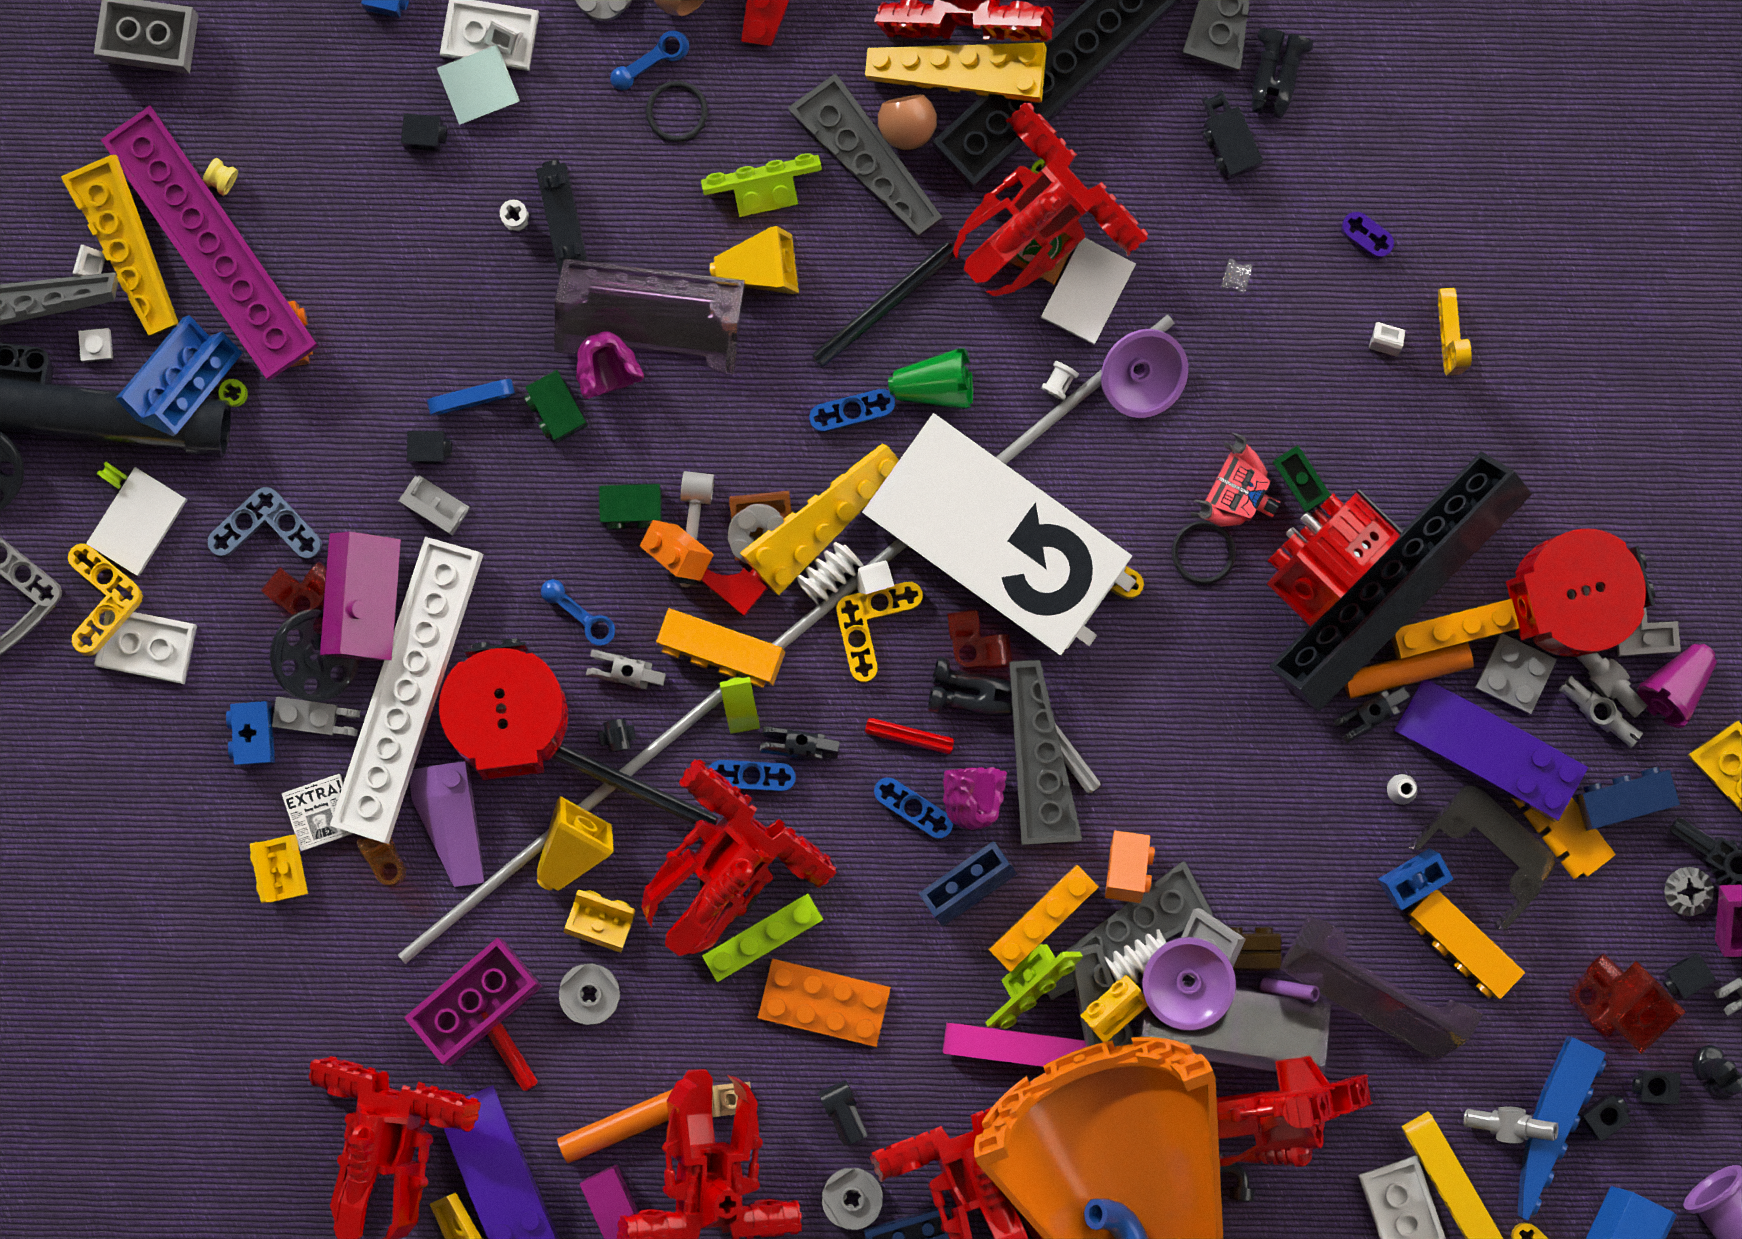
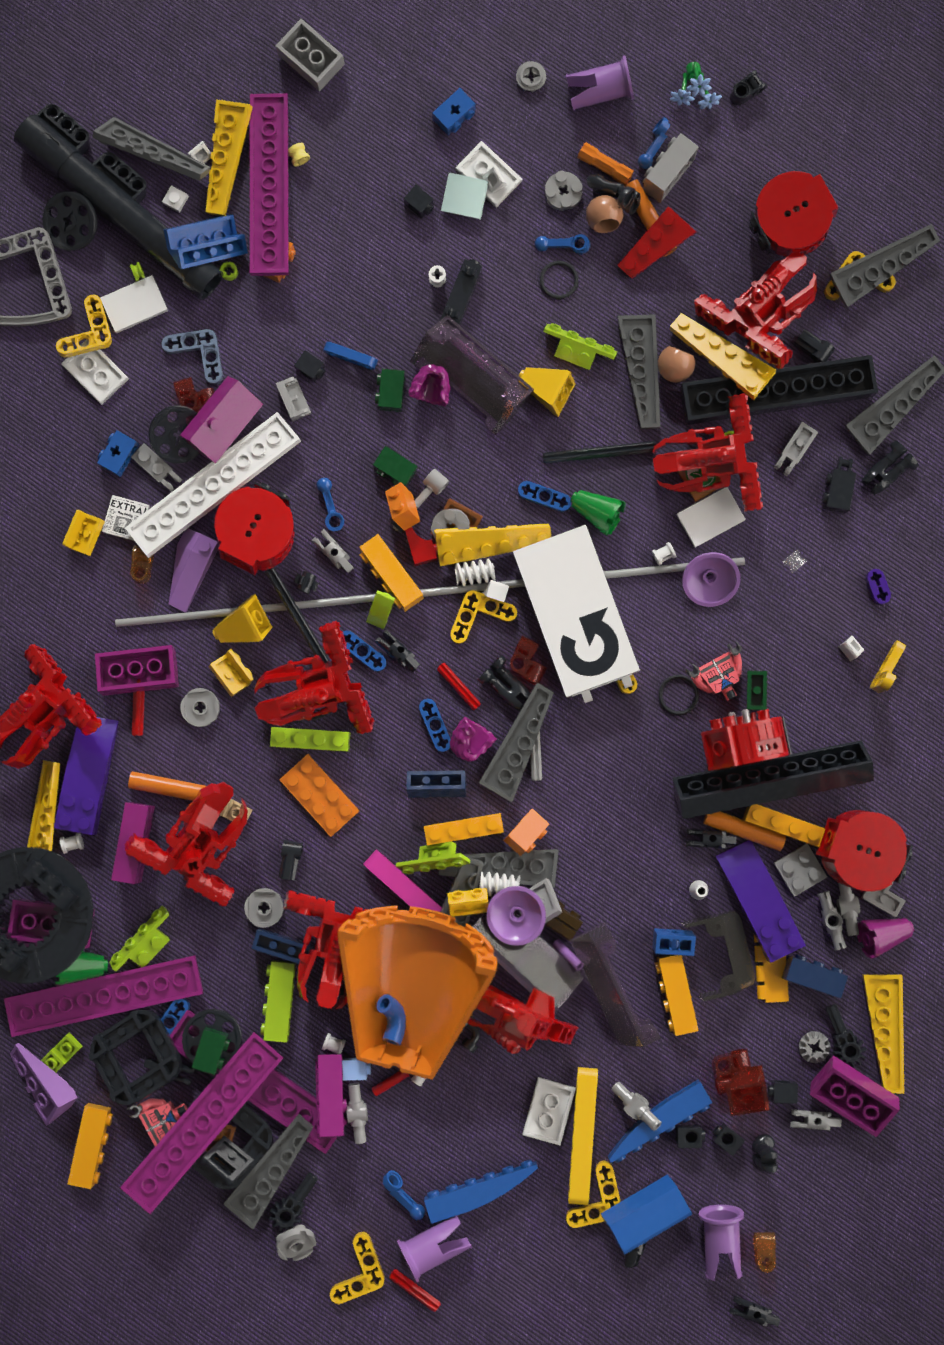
camera: 30 degrees right, 0 degrees up
(1138, 123) = (797, 446): none -> light grey hinge

